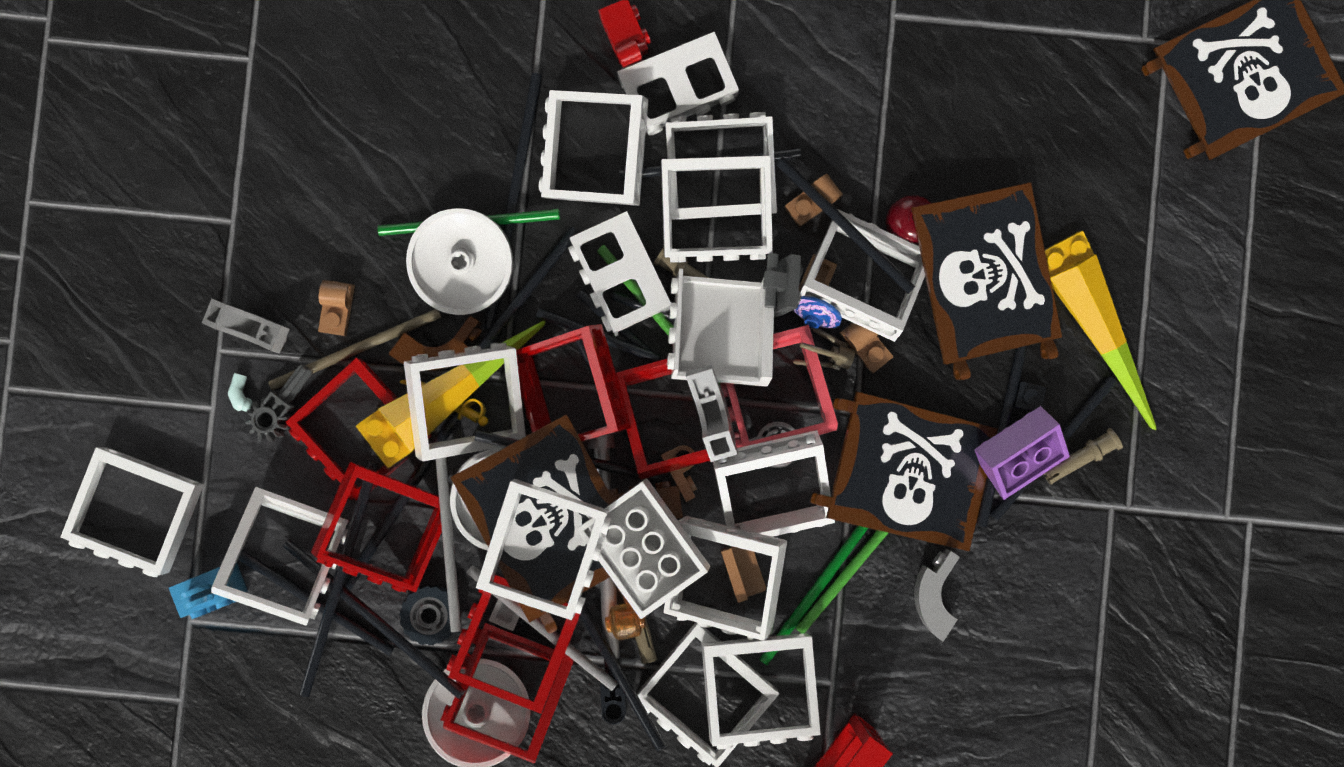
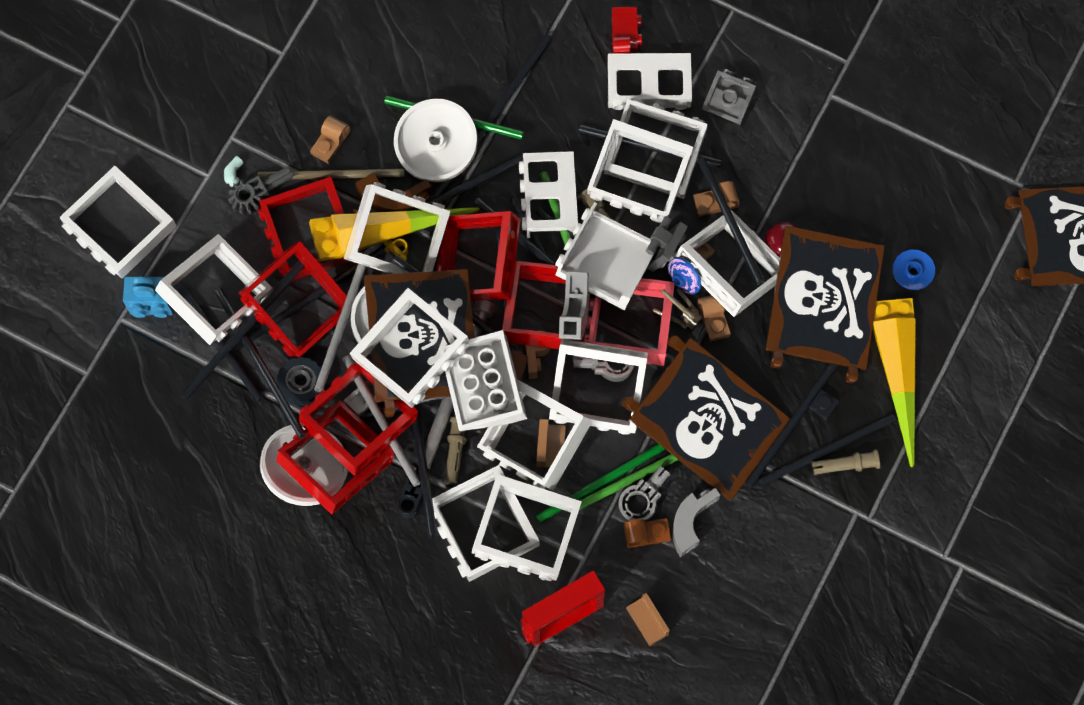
camera: 25 degrees right, 15 degrees down
(245, 325) = (260, 125): light grey arch -> none
(624, 622) = (446, 439): clear orange head -> none
(635, 147) = (595, 113): white window -> none
(780, 66) = (729, 96): none -> flat silver plate
(876, 572) = (653, 484): none -> light grey pin
(887, 630) = (646, 533): none -> dark orange plate
(932, 727) = (648, 620): none -> medium nougat panel
(1022, 452) = (800, 438): medium lavender slope -> none
(1084, 195) = (916, 261): none -> blue dish

